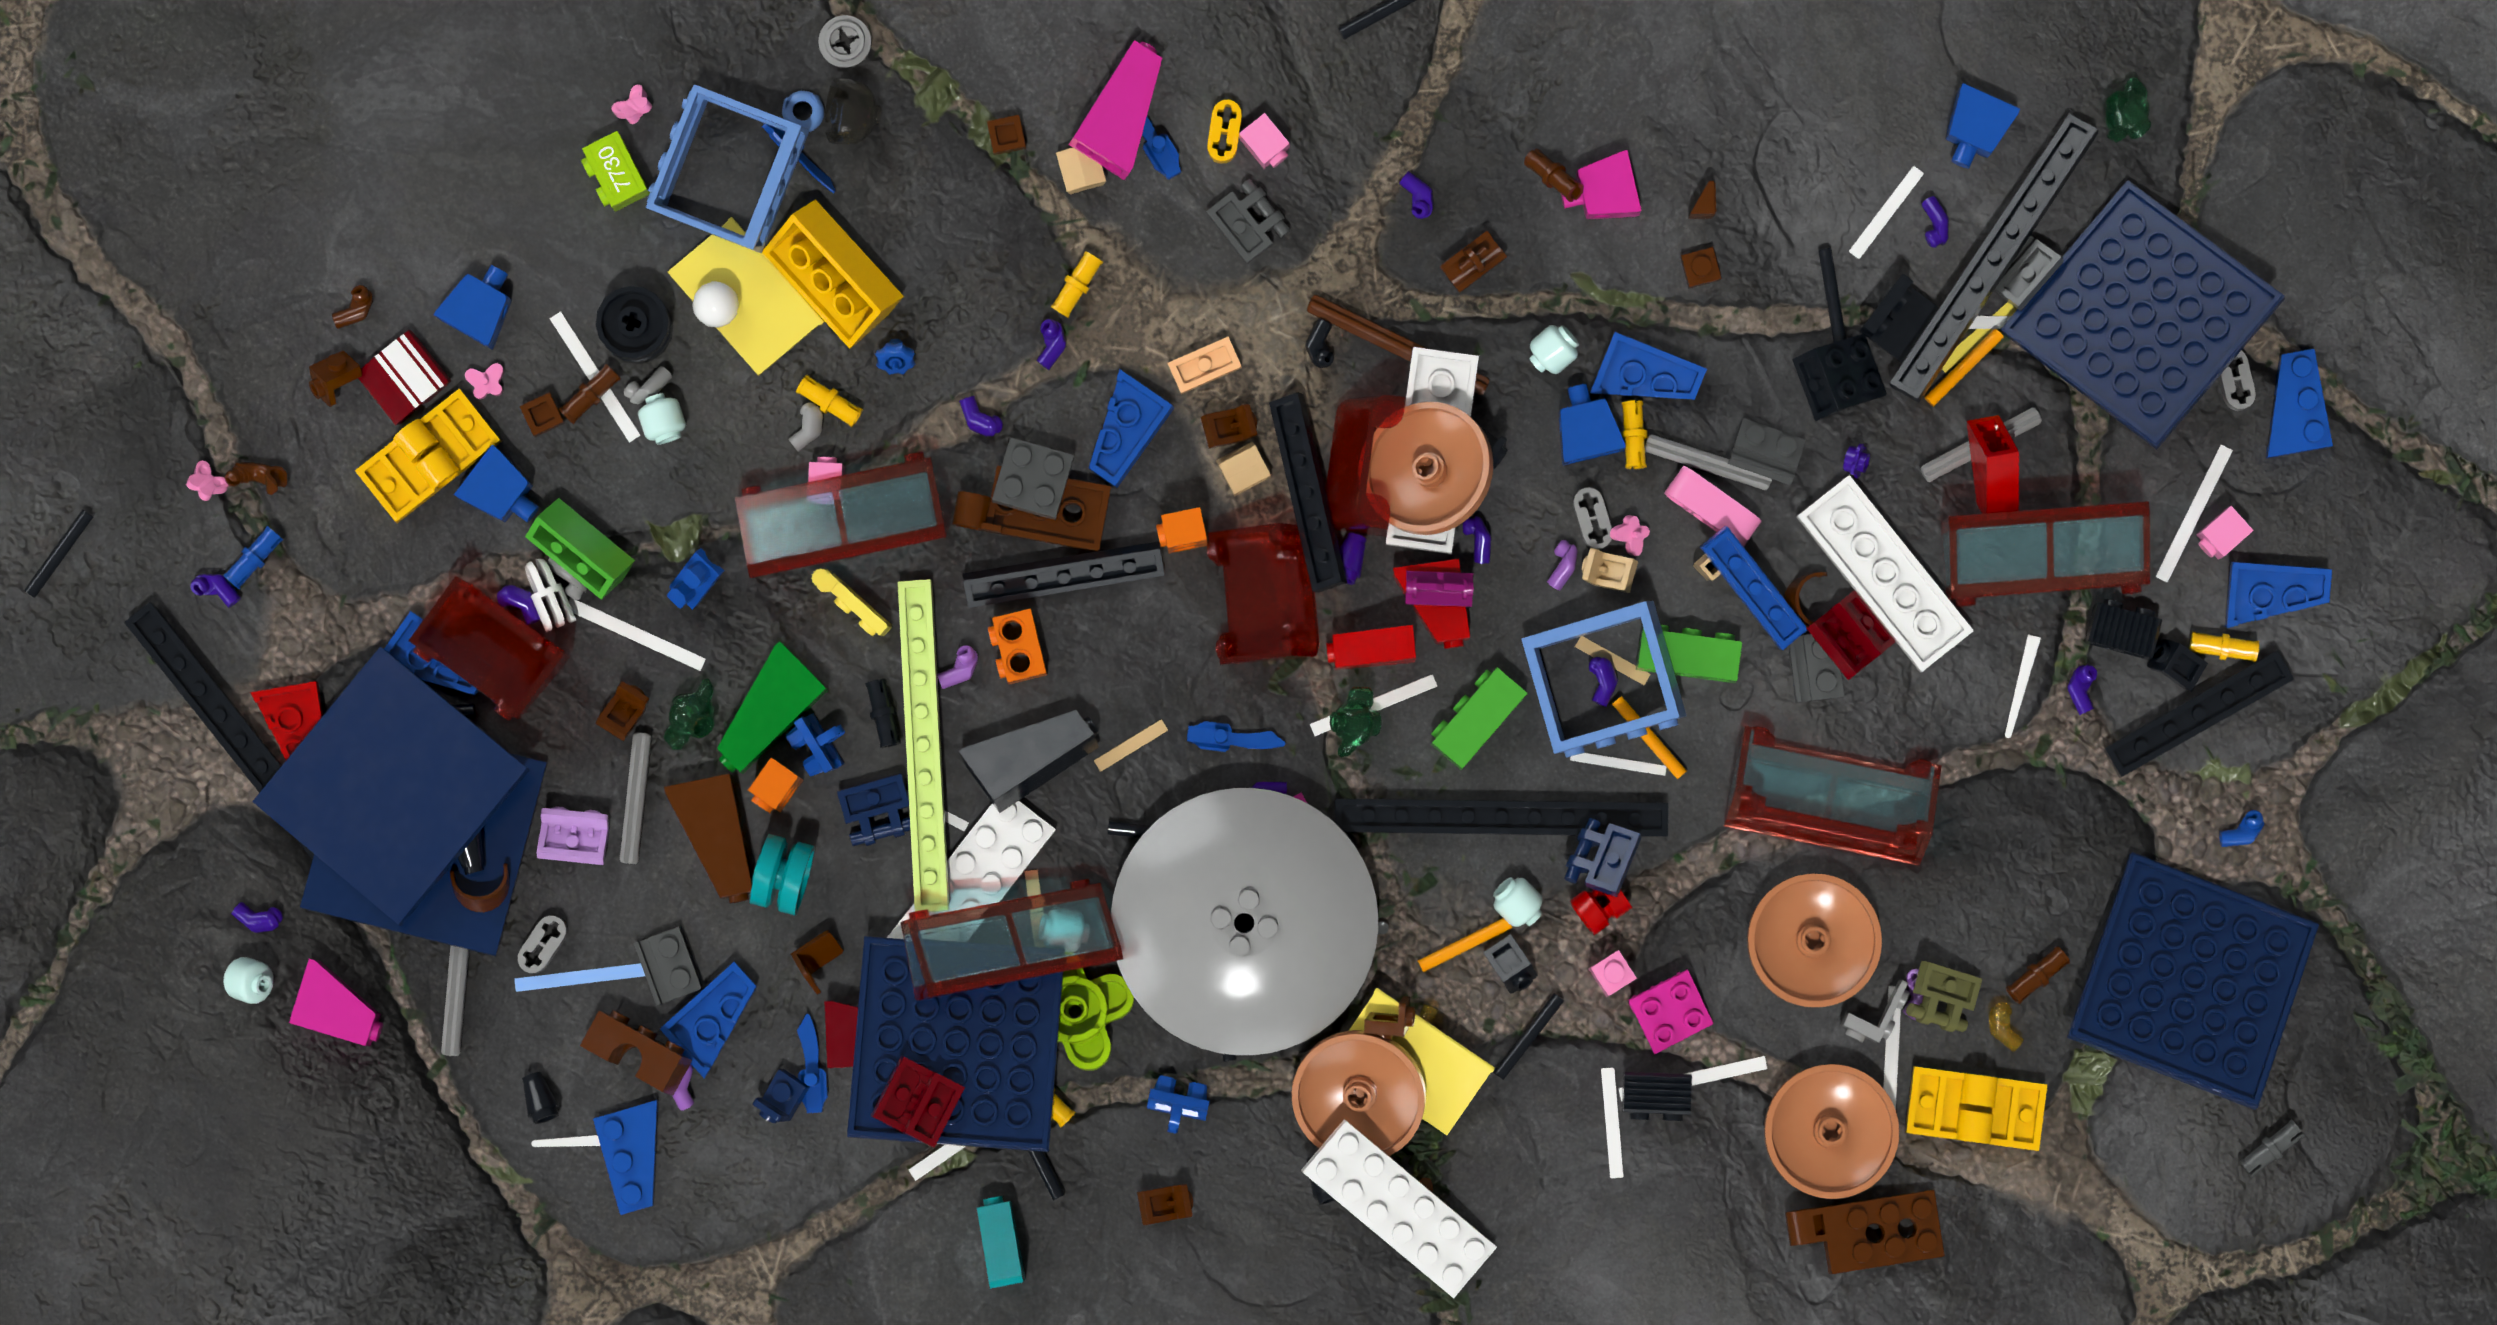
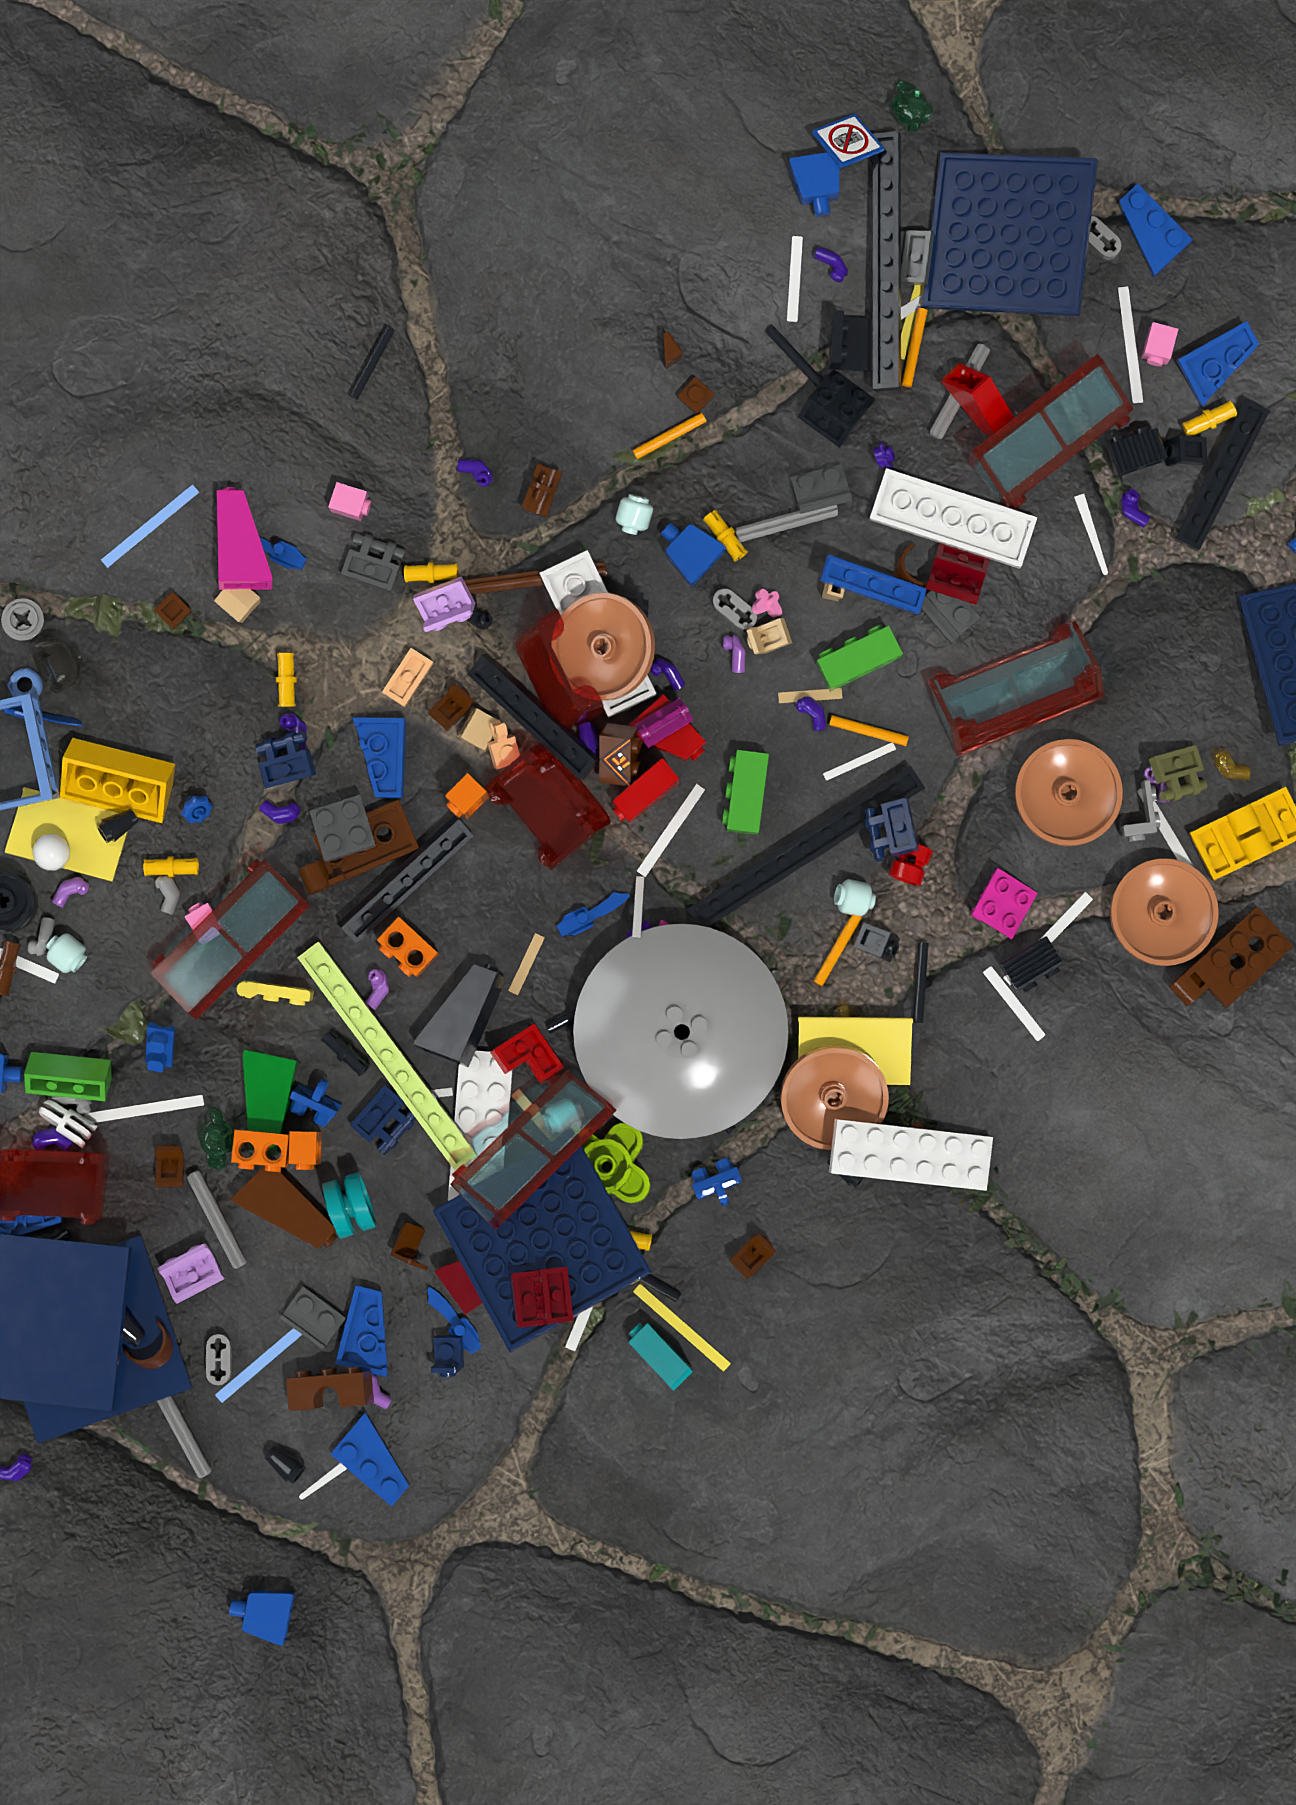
camera: 30 degrees left, 0 degrees up
(248, 980) = (35, 1515): light aqua head -> none
(333, 1007) = (105, 1495): dark pink slope -> none
(418, 1239) = (265, 1614): none -> blue torso
(708, 352) = (69, 887): none -> medium lavender arm
(734, 750) = (261, 1143): none -> orange brick
(801, 321) = (117, 825): none -> black cone
(1017, 377) = (285, 768): none -> dark blue plate
(1040, 30) = (149, 526): none -> light blue sticker
(1042, 1230) = (681, 1327): none -> light yellow sticker
(1078, 836) = (531, 1048): none -> red plate
(1232, 131) = (323, 510): yellow beam -> none
(1255, 504) = (504, 747): none -> light nougat plate
(1286, 762) = (638, 907): none -> white sticker
(1293, 314) = (445, 604): none -> lavender bracket
(1301, 271) = (431, 572): none -> yellow pin
(1355, 720) = (666, 848): clear green piece -> none
(1370, 591) = (619, 754): none -> reddish brown brick
(1391, 1025) = (823, 1036): reddish brown bracket -> none
(1553, 175) = (557, 397): reddish brown pin -> none
(1607, 189) = (598, 385): dark pink torso -> none
(1612, 973) = (948, 903): bright pink brick -> none
(1636, 728) = (810, 647): medium blue window -> none
(1643, 370) = (704, 488): blue wing -> none
(1645, 291) = (669, 435): none -> light orange bar
(1711, 505) = (807, 548): bright pink beam -> none
(2037, 104) = (848, 140): none -> piece
(2038, 975) = (1231, 718): reddish brown pin -> none

